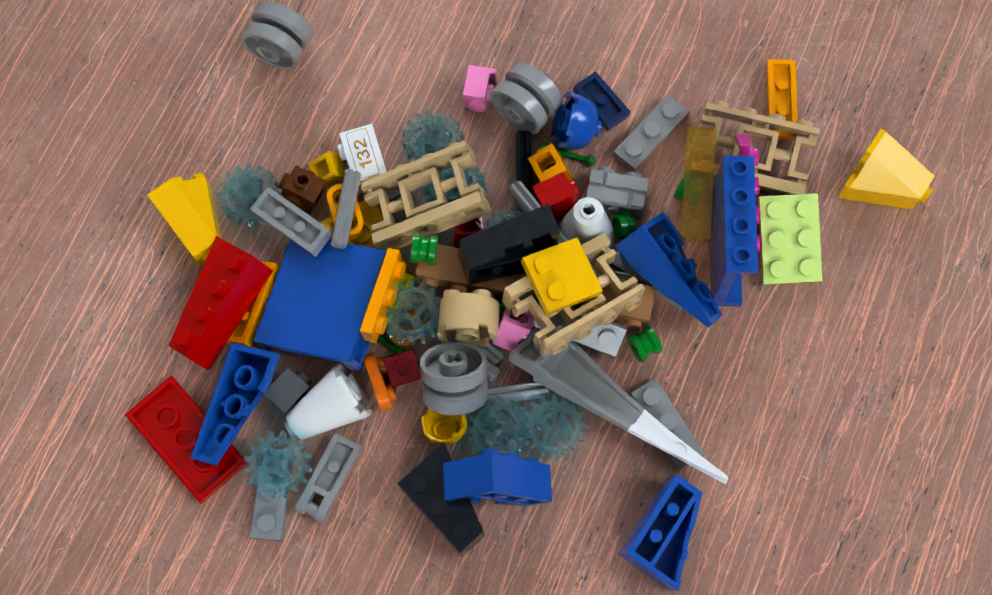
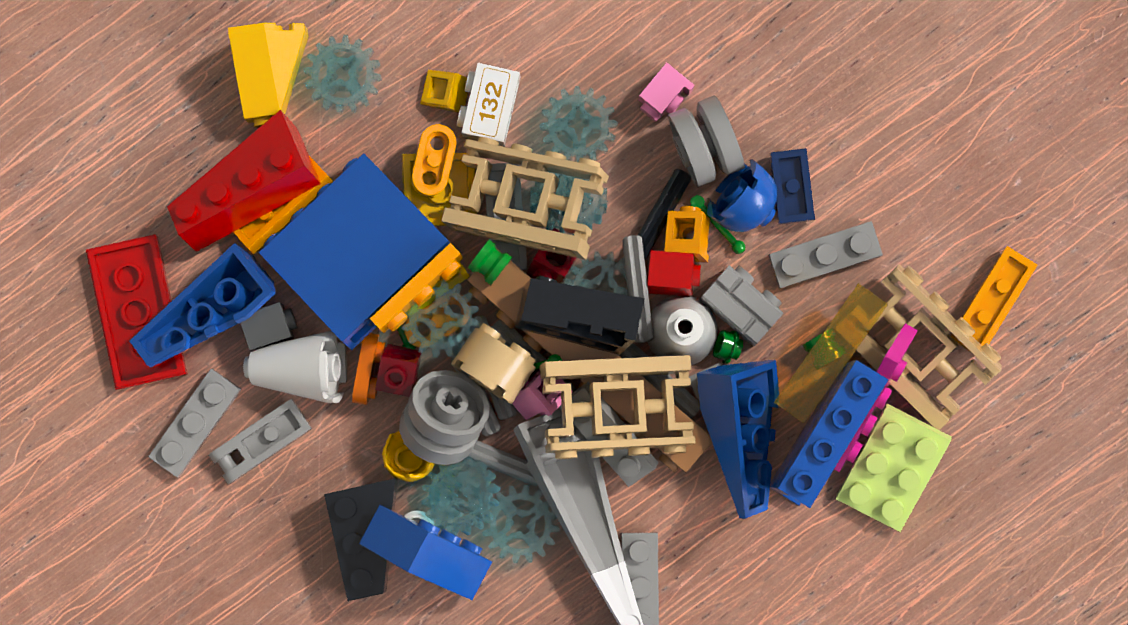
camera: 30 degrees right, 15 degrees up
(267, 470) = (212, 385): clear light blue gear -> none
(291, 221) = (368, 143): light grey plate -> none
(302, 188) = (413, 107): reddish brown brick -> none
(345, 209) = (433, 164): light grey axle -> none
(561, 276) = (612, 383): yellow plate -> none
(644, 344) = (668, 490): green wheel -> none
(888, 176) = (1046, 461): yellow slope -> none

